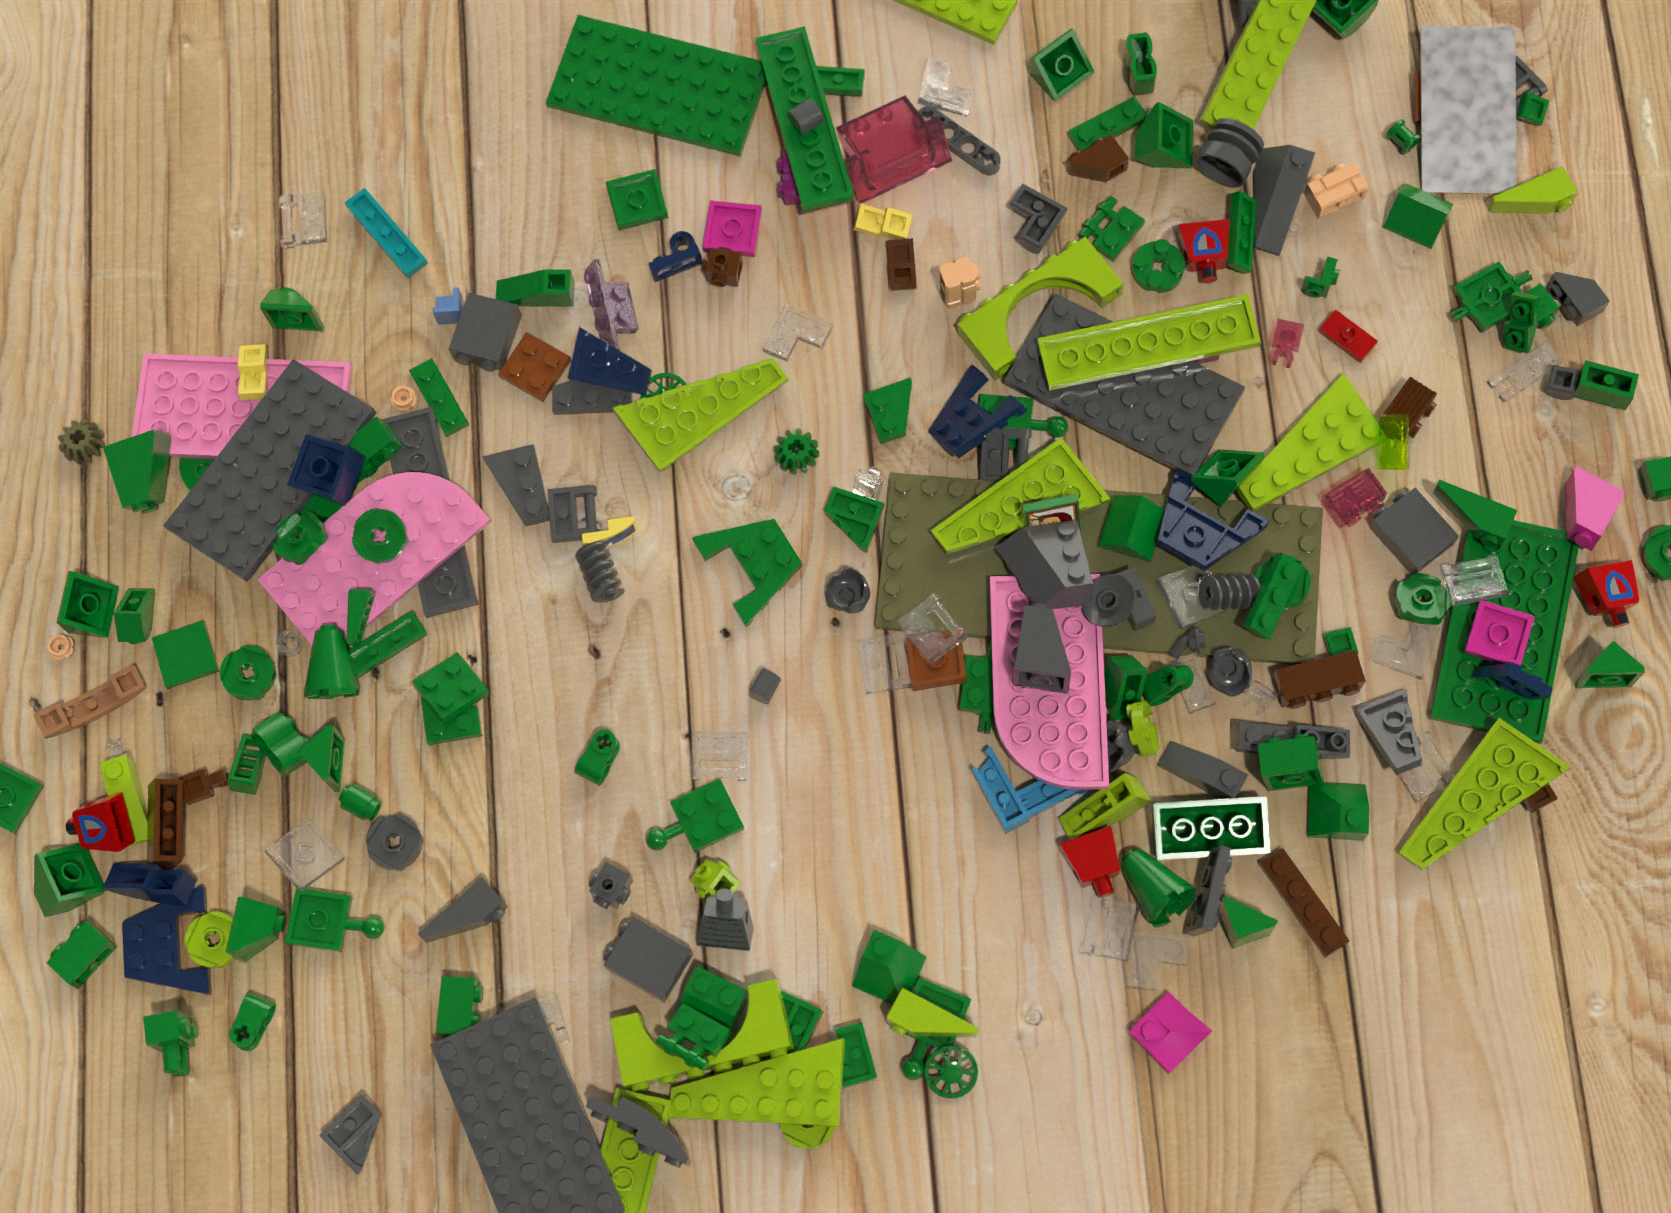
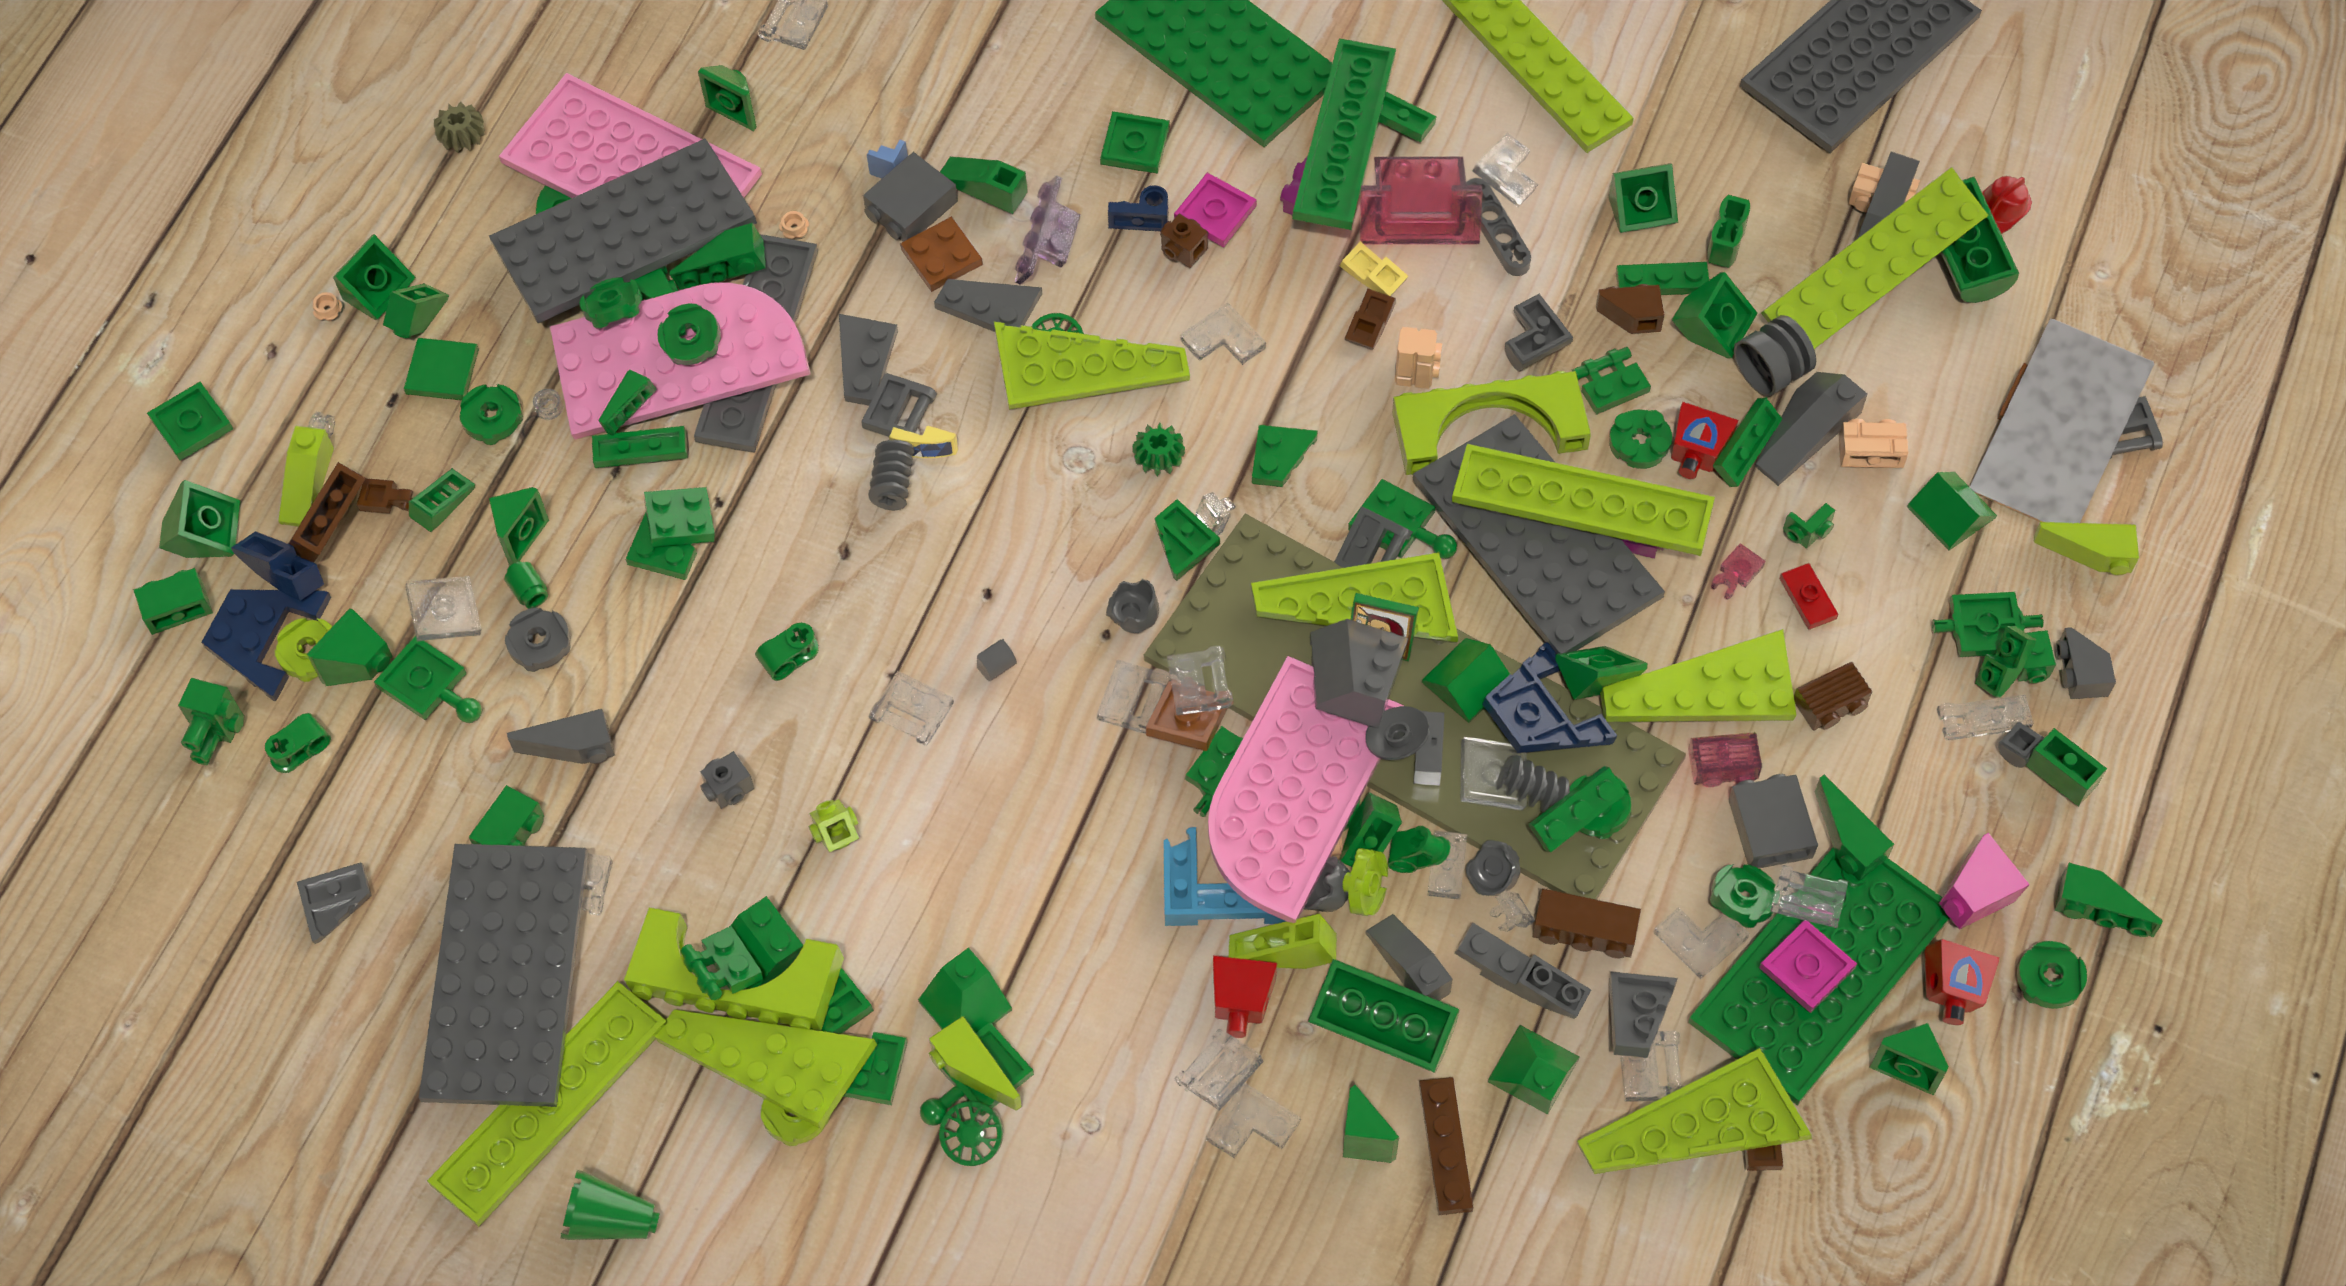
camera: 20 degrees right, 10 degrees down
(91, 705) = (322, 375): medium nougat slope -> none
(102, 824) = (265, 485): red torso -> none
(140, 469) = (497, 172): green slope -> none
(253, 372) = (661, 133): light yellow slope -> none
(280, 743) = (476, 485): green brick -> none
(326, 470) = (673, 249): dark blue slope -> none
(330, 666) = (570, 439): green cone -> none
(386, 233) = (866, 65): teal plate -> none
(439, 397) = (830, 241): green plate -> none
(606, 366) = (1010, 280): dark blue wing -> none
(647, 959) = (723, 871): dark grey brick -> none
(650, 1134) = (620, 1028): dark grey slope -> none
(703, 817) = (860, 760): green plate -> none
(726, 922) = (821, 869): dark grey torso -> none
(762, 555) = (1067, 532): green wing -> none
(805, 116) = (1345, 128): dark grey brick -> none
(964, 423) = (1351, 491): dark blue wing -> none
(1041, 653) = (1290, 746): dark grey slope -> none
(1156, 887) = (1292, 1052): green cone -> none
(1169, 1032) = (1225, 1207): dark pink plate -> none
(1194, 640) = (1472, 820): dark grey plate -> none
(1207, 902) = (1350, 1075): dark grey wing -> none
(1290, 763) = (1504, 989): green slope -> none
(1340, 641) = (1633, 896): green tile -> none
(1394, 441) = (1798, 719): clear neon green plate -> none
(1403, 136) = (1976, 423): green bush -> none
(1515, 680) = (1800, 1019): dark blue wing -> none
(1532, 109) = (2135, 456): green tile -> none

